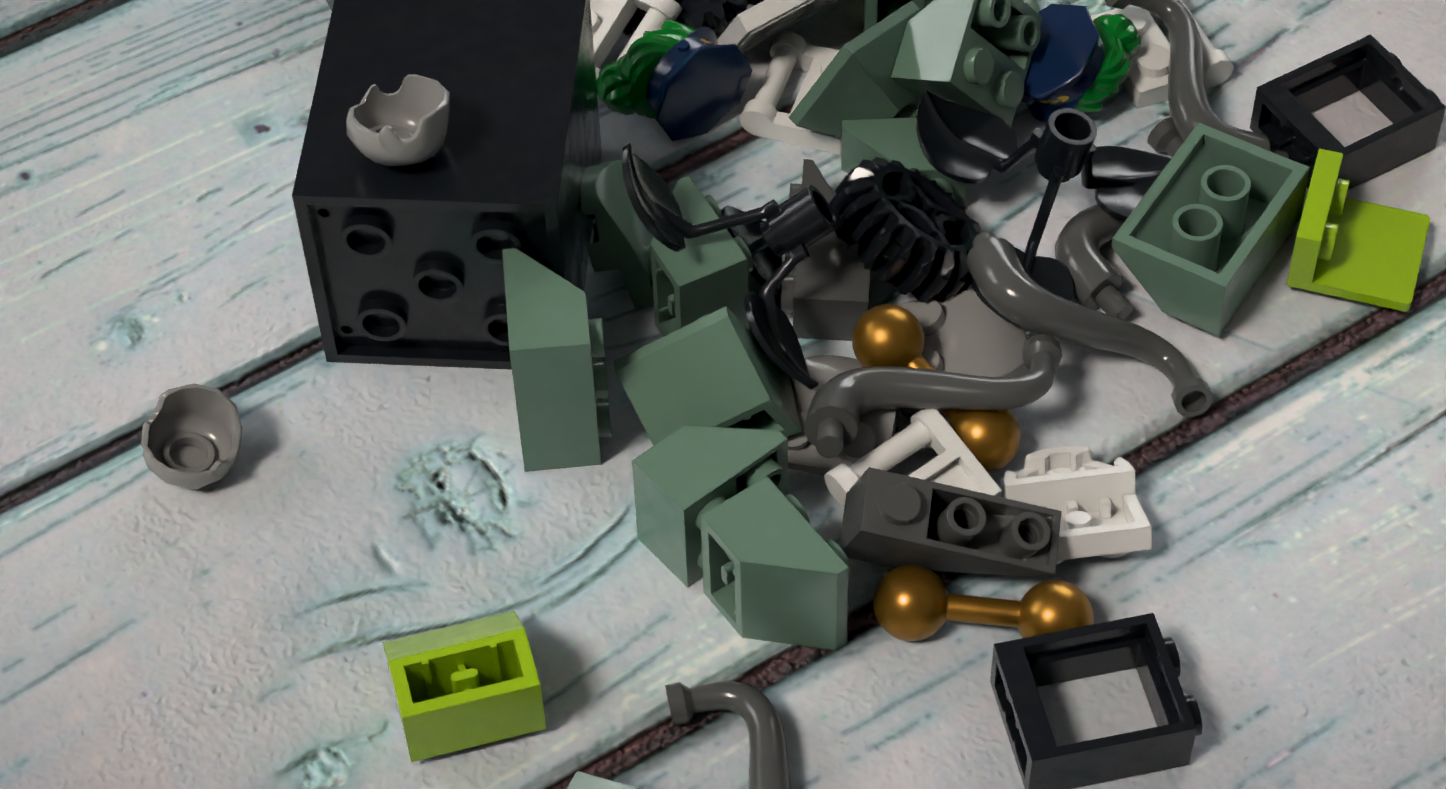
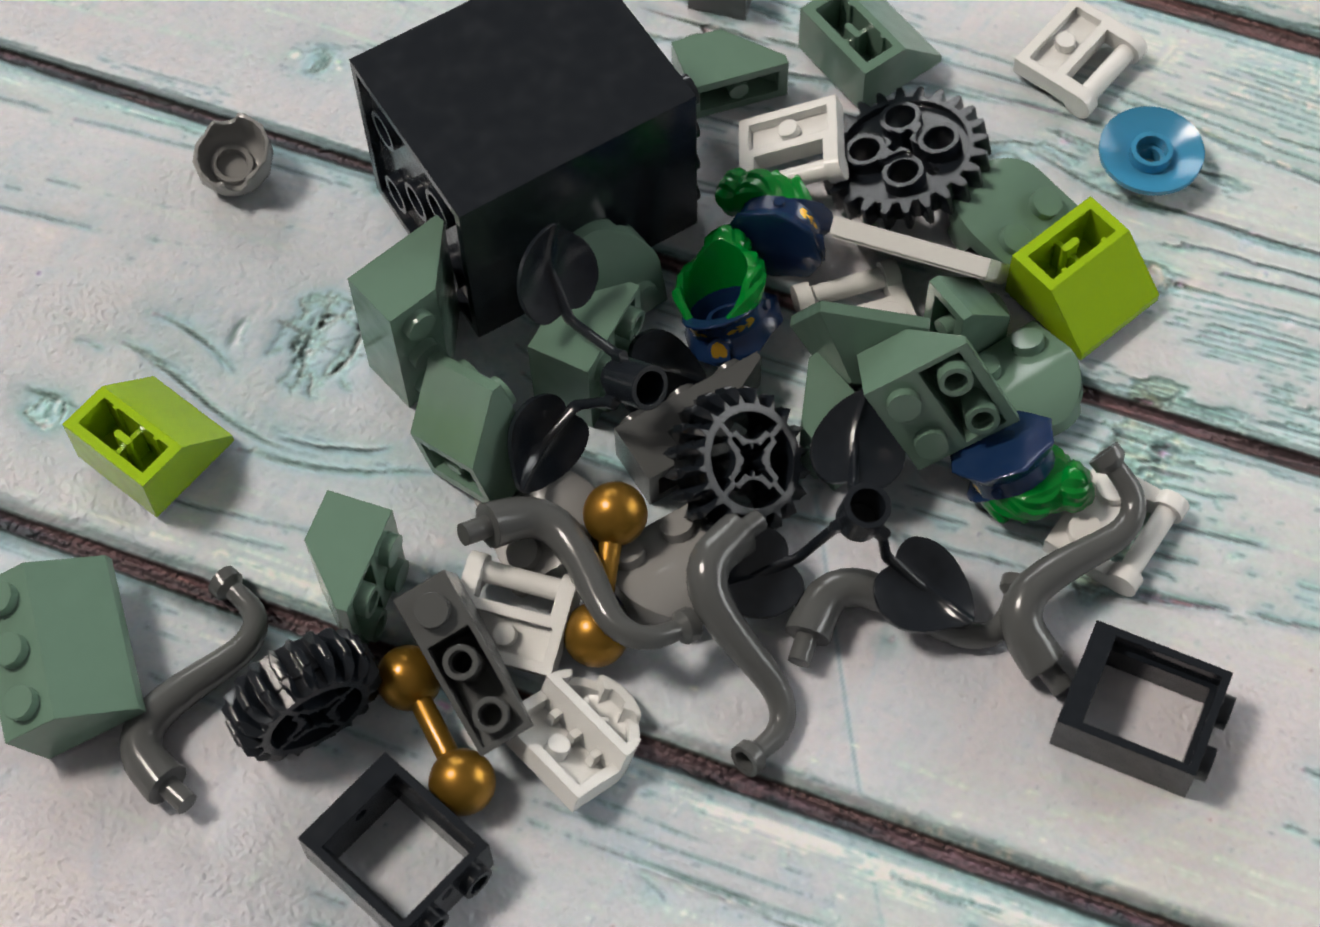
camera: 55 degrees right, 10 degrees up
(401, 125) = (437, 73): light grey hair -> none
(692, 475) = (384, 470): sand green slope -> none
(727, 149) = (725, 299): none -> piece
(879, 680) = (301, 694): none -> black gear
(1211, 225) = (921, 670): sand green slope -> none
(1355, 245) = (1005, 787): lime bracket -> none

